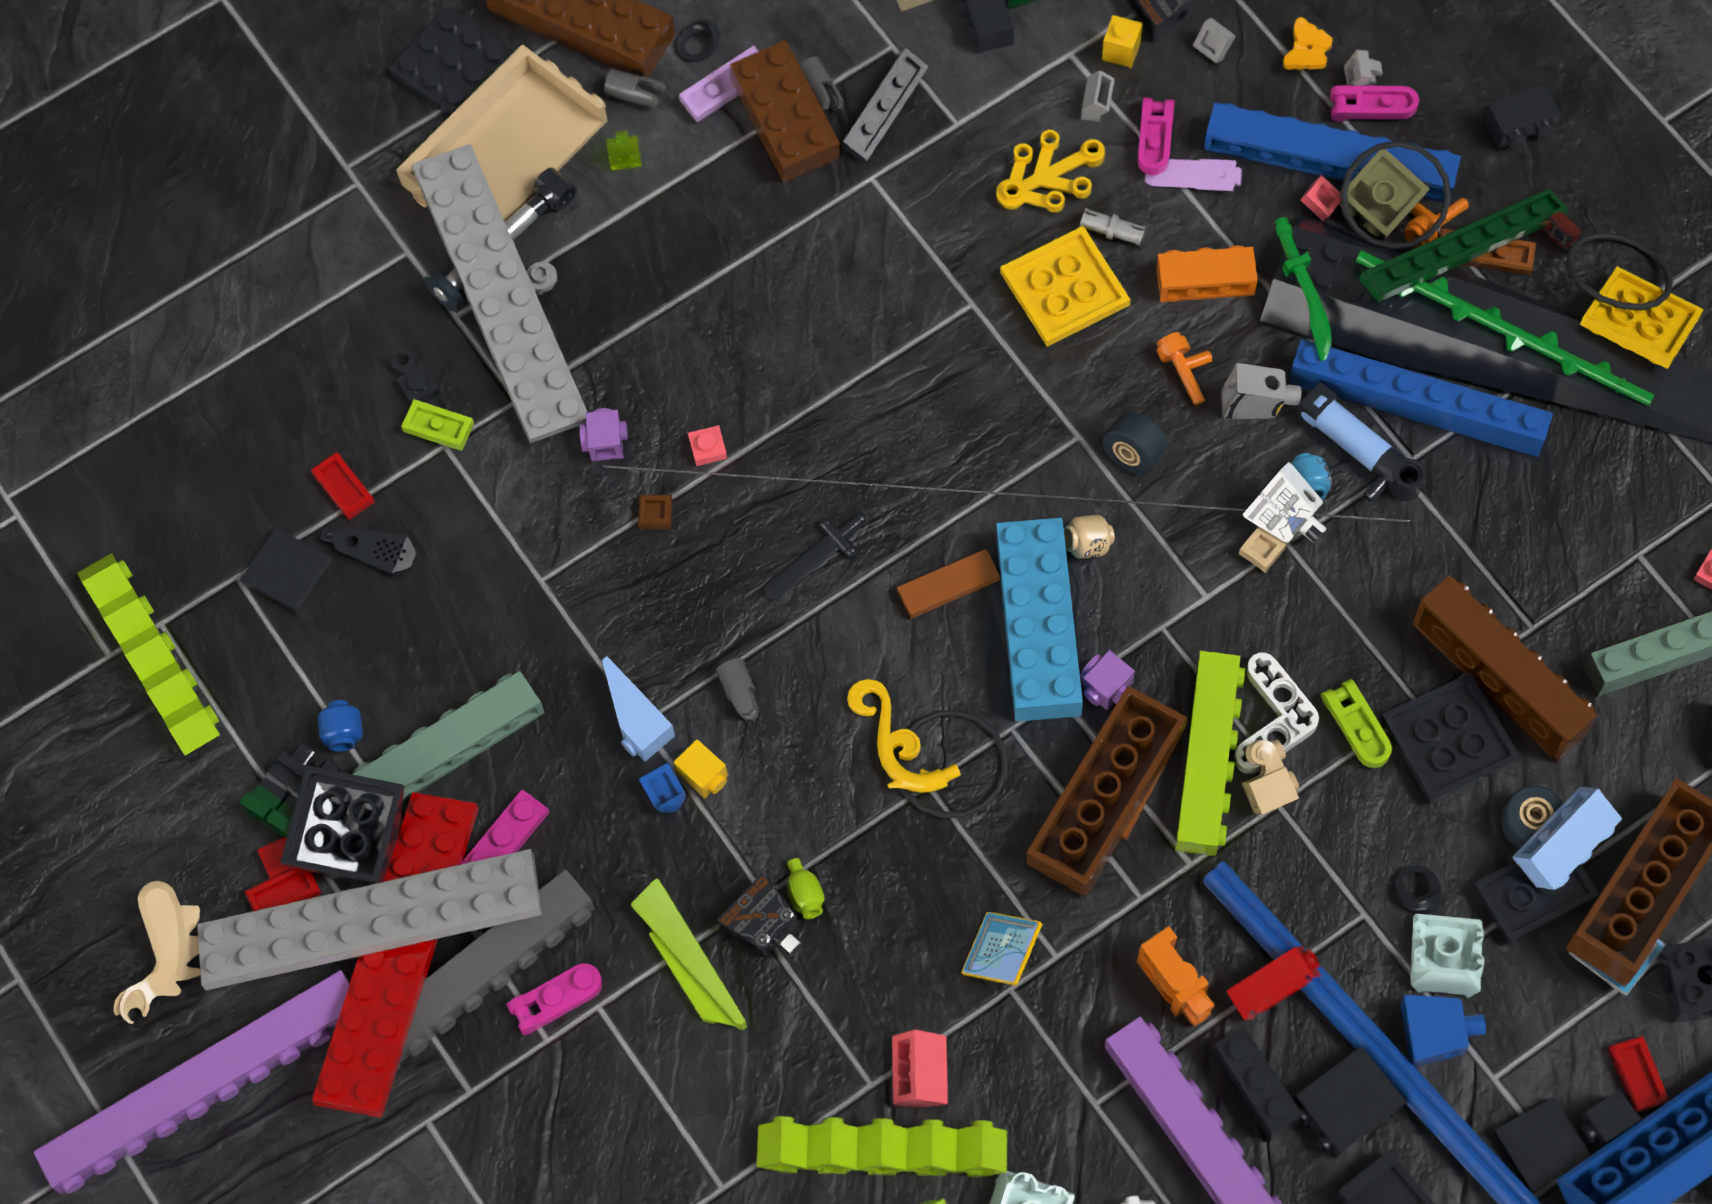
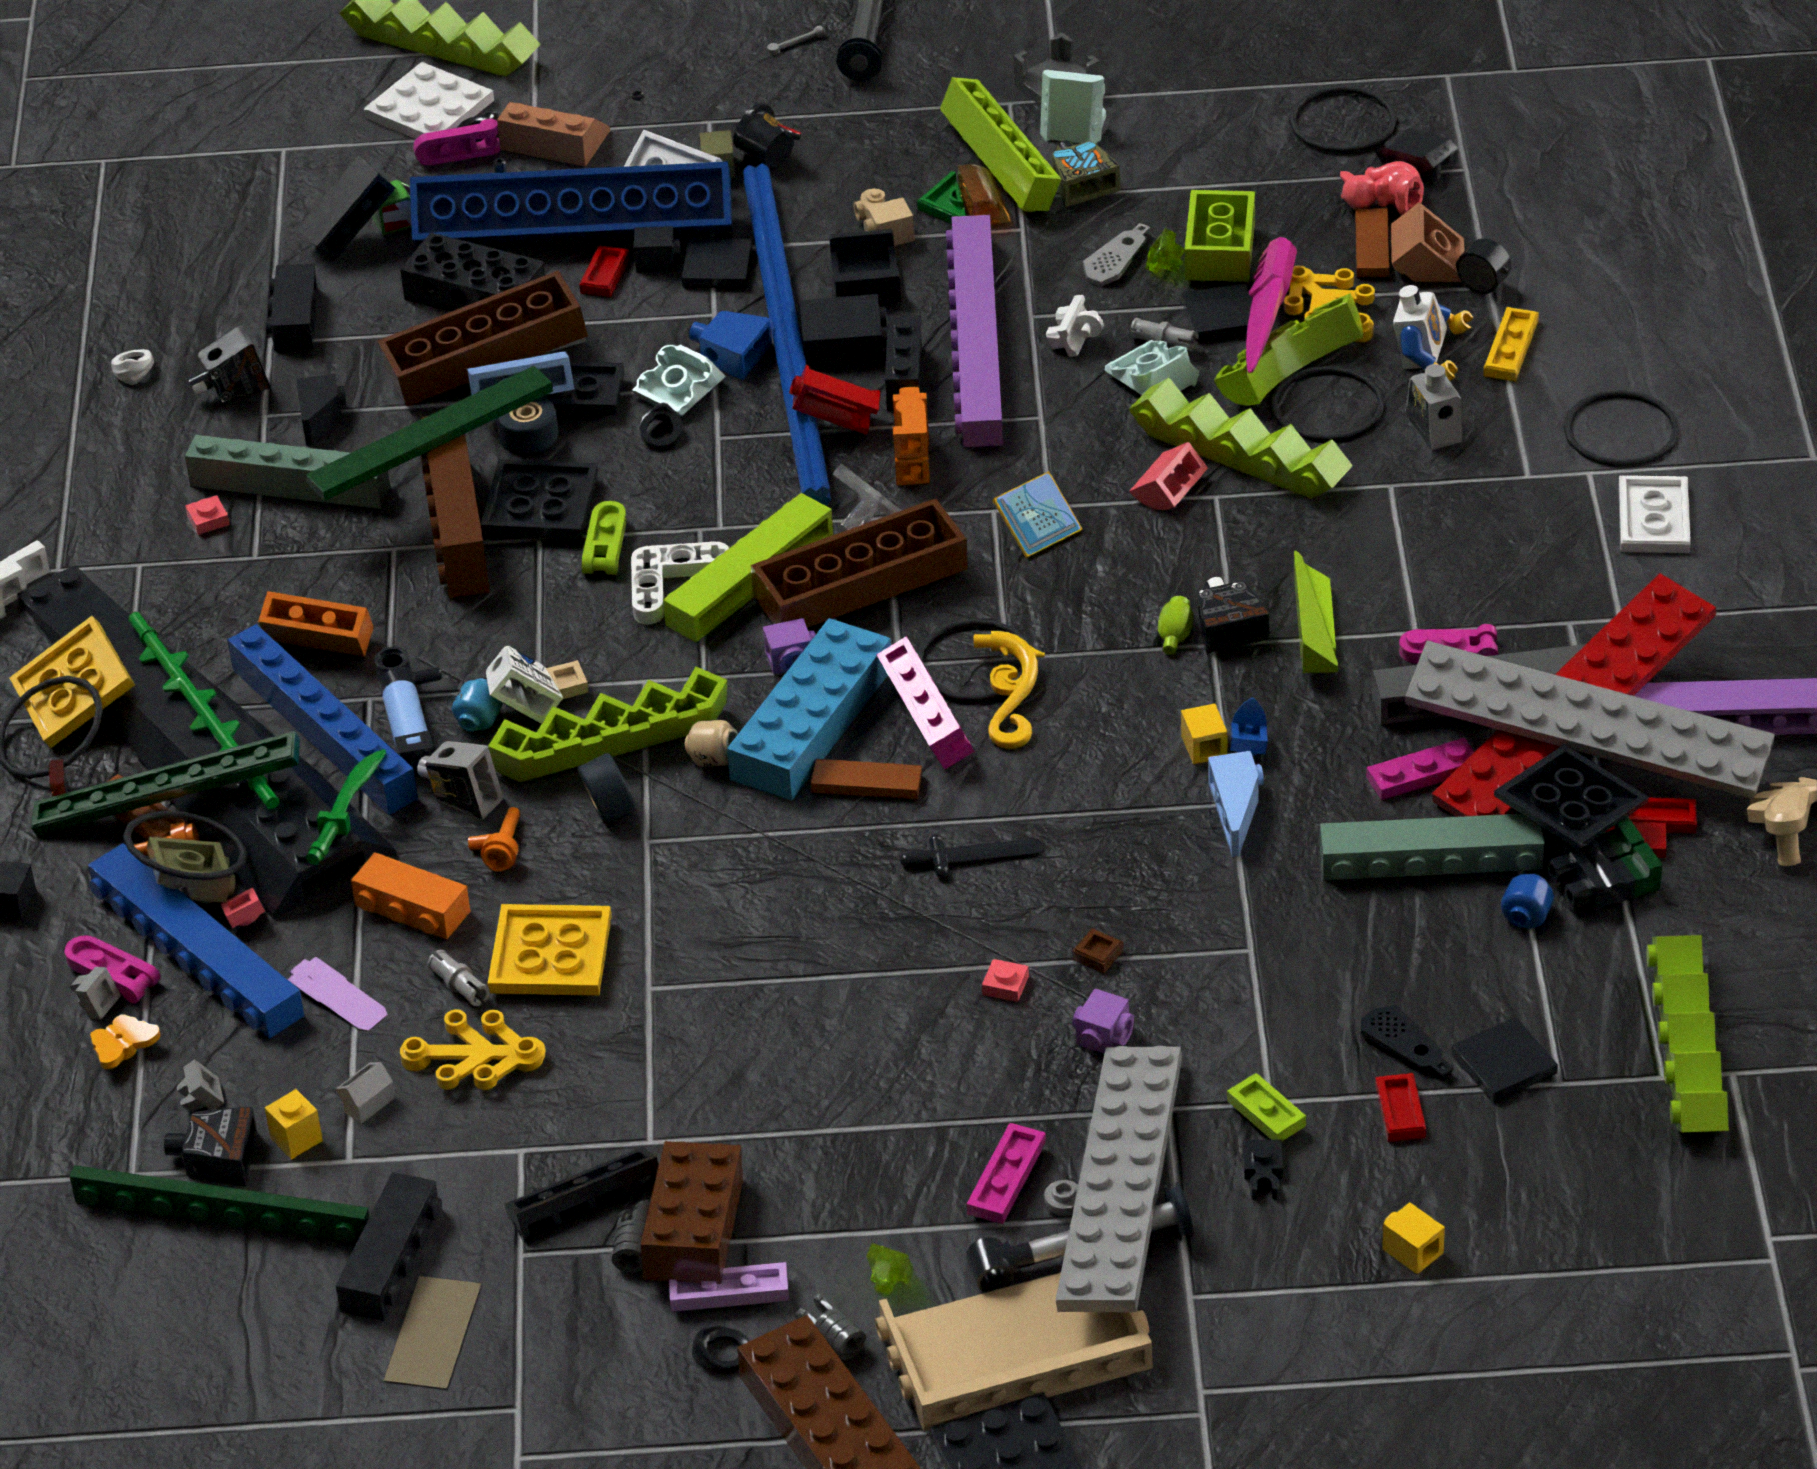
camera: 150 degrees left, 25 degrees down
(268, 364) = (1413, 1237): none -> yellow brick
(593, 271) = (1006, 1173): none -> dark pink plate
(739, 688) = (1123, 777): dark grey hinge -> none
(945, 667) = (925, 703): none -> brick
(1151, 876) = (870, 499): none -> clear tile
(1155, 136) = (340, 1034): dark pink plate -> none
(1179, 505) = (608, 728): none -> lime brick
(1274, 783) = (717, 521): tan brick -> none
(1505, 482) = (316, 623): none -> orange brick
(1567, 693) = (429, 433): none -> dark green tile

